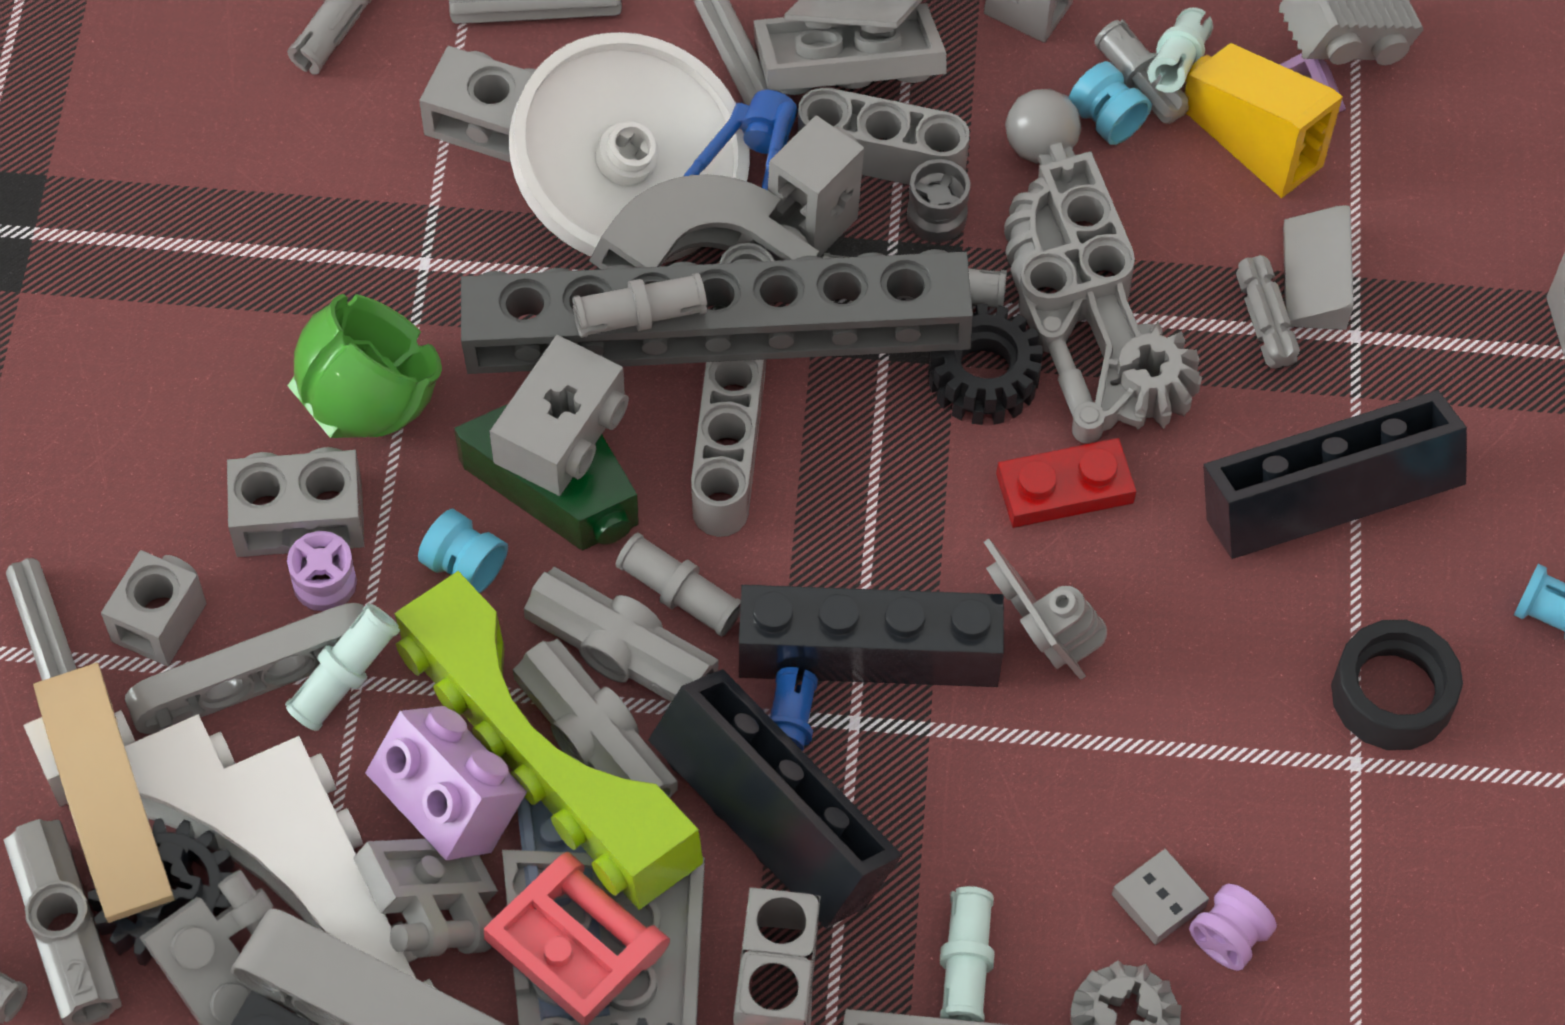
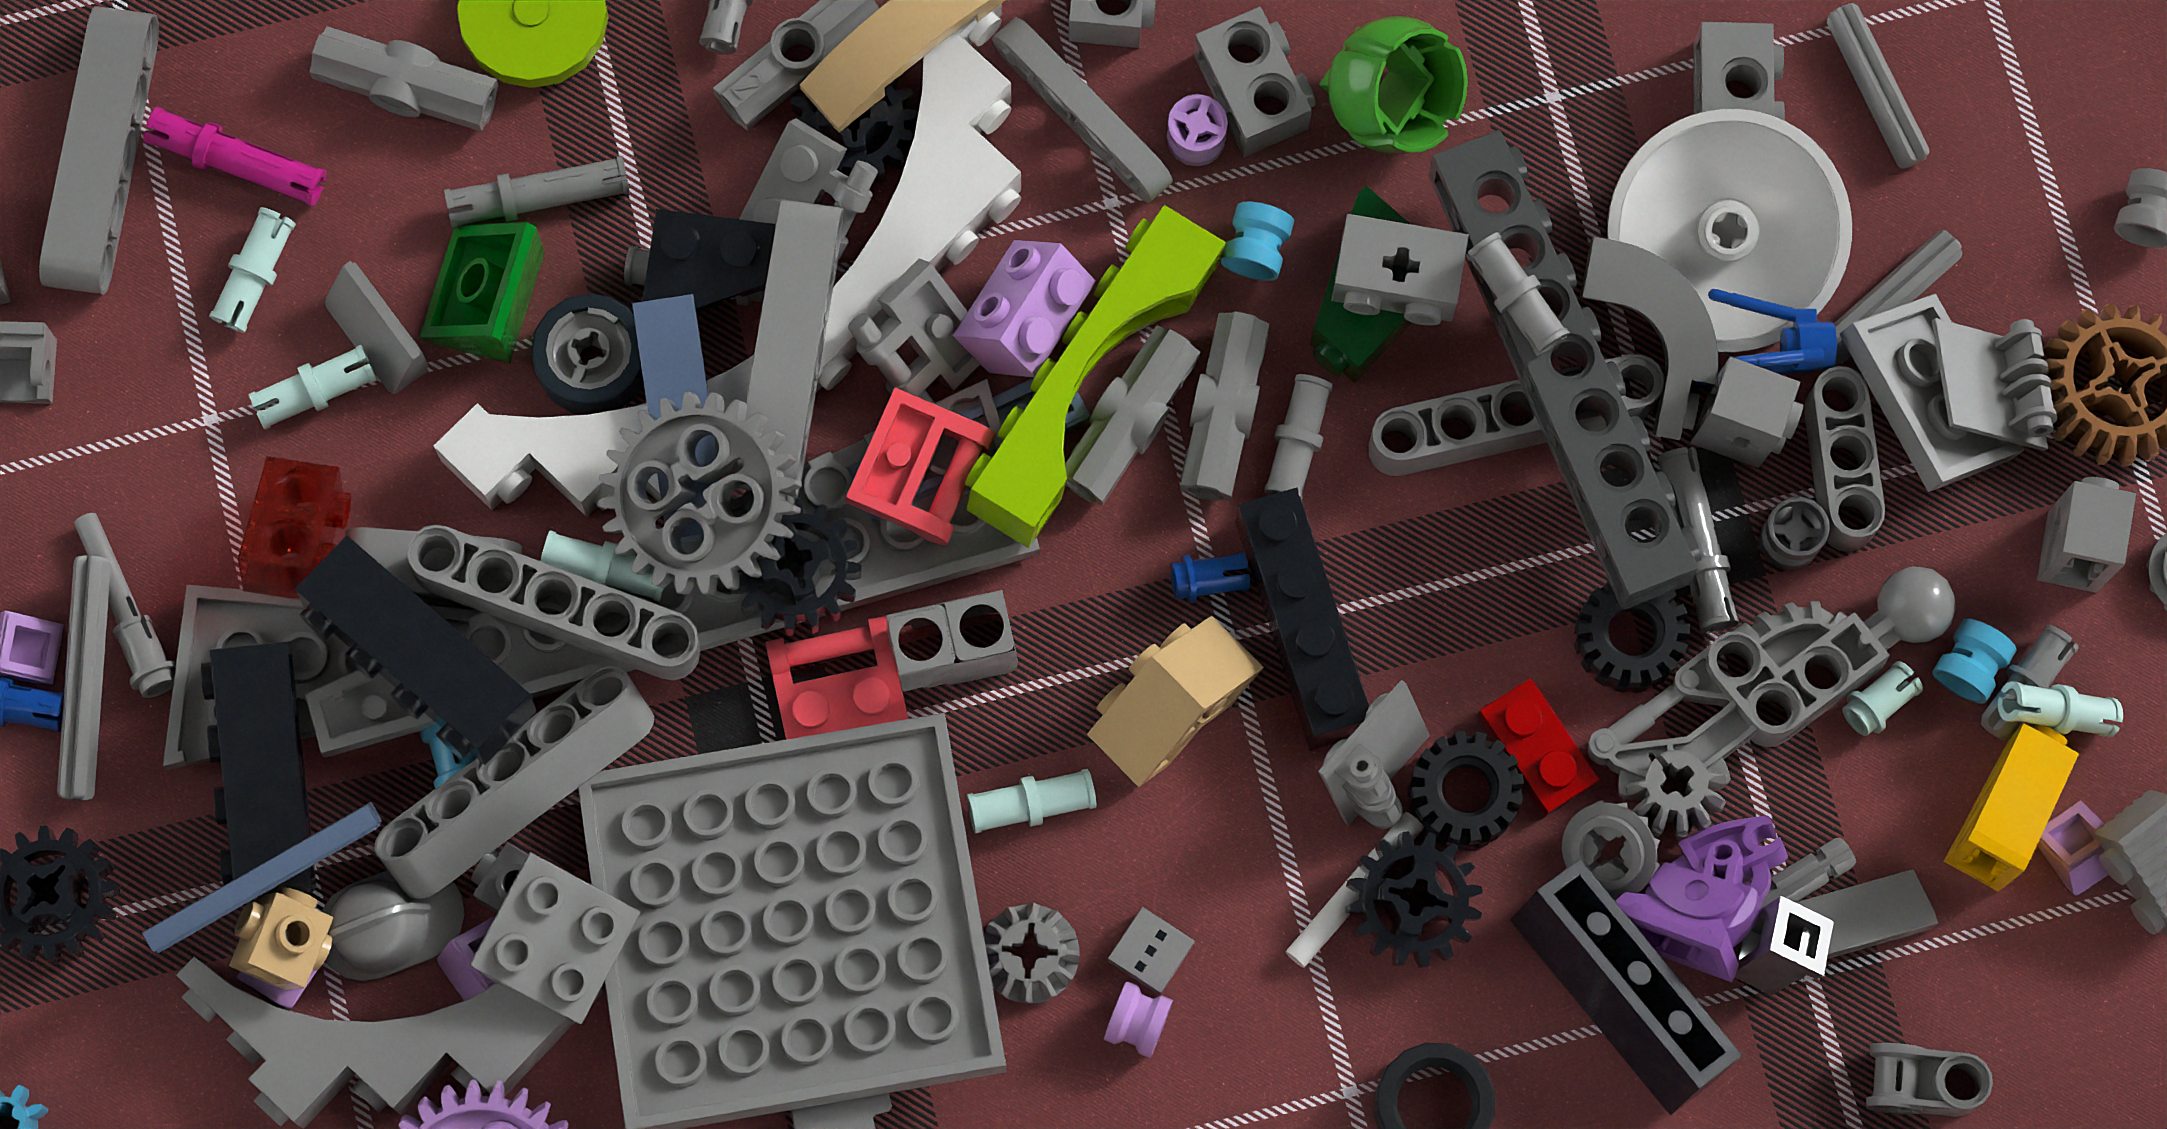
camera: 70 degrees right, 15 degrees up
(342, 667) = (1103, 182): light aqua pin -> none
(774, 796) = (1112, 586): black brick -> none
(920, 774) = (1172, 697): none -> tan brick
(1100, 523) = (1472, 753): none -> black tyre
(1127, 196) = (1871, 707): none -> light aqua pin
(1158, 692) = (1334, 912): none -> white bar
(1206, 419) = (1584, 842): none -> light grey gear
(1208, 657) = (1419, 872): none -> black gear
(1265, 384) = (1705, 897): none -> medium lavender piece
(1335, 334) = (1783, 946): none -> flat silver brick
(1491, 272) = (1922, 1081): none -> light grey piece

